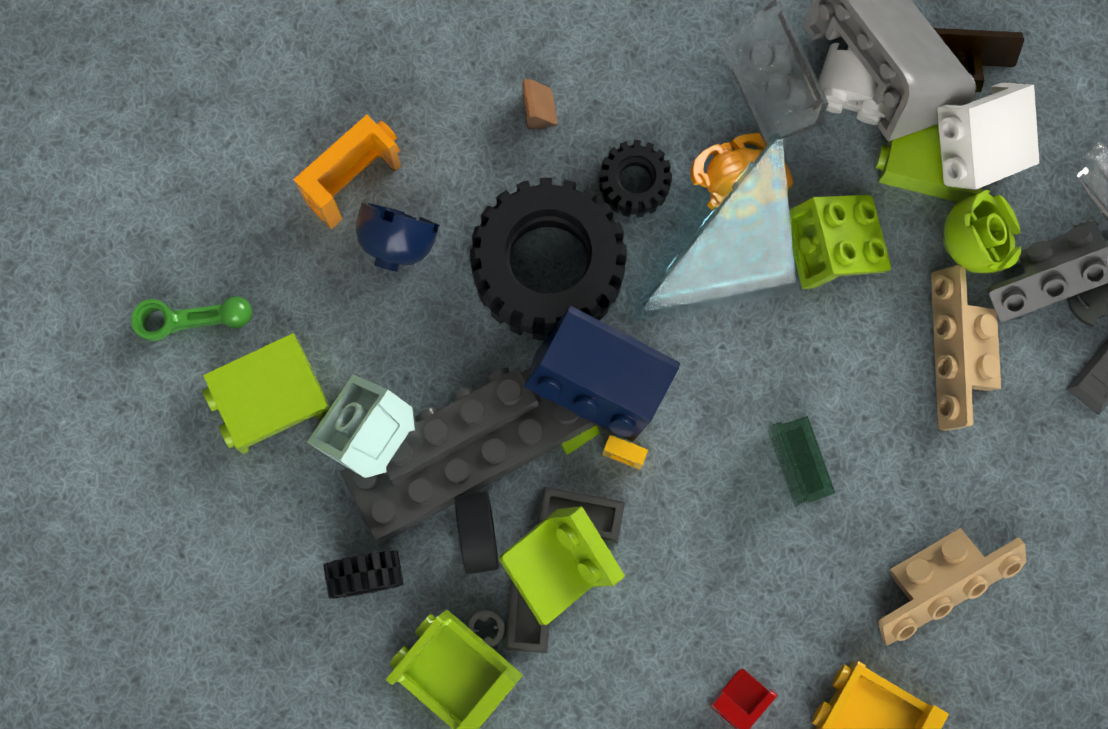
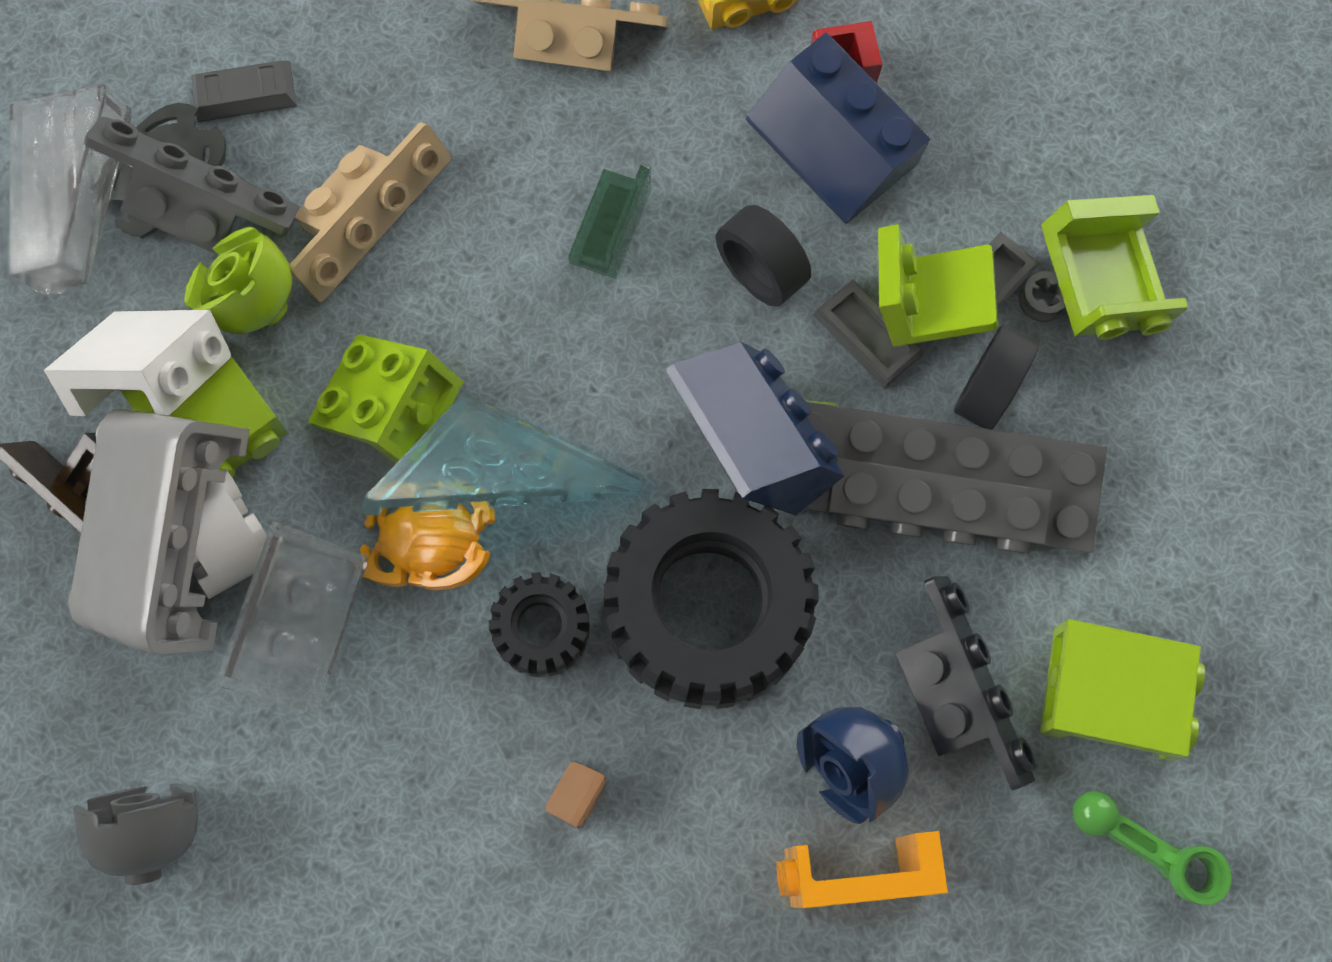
camera: 145 degrees left, 5 degrees down
(363, 427) = (1049, 564): light aqua slope -> none
(363, 574) = (1144, 421): black tyre -> none
(364, 327) = (957, 690): none -> black bracket
(625, 452) = (778, 341): yellow tile -> none
(684, 501) = (763, 255): none -> black tyre
(708, 638) = (837, 128): none -> dark blue slope

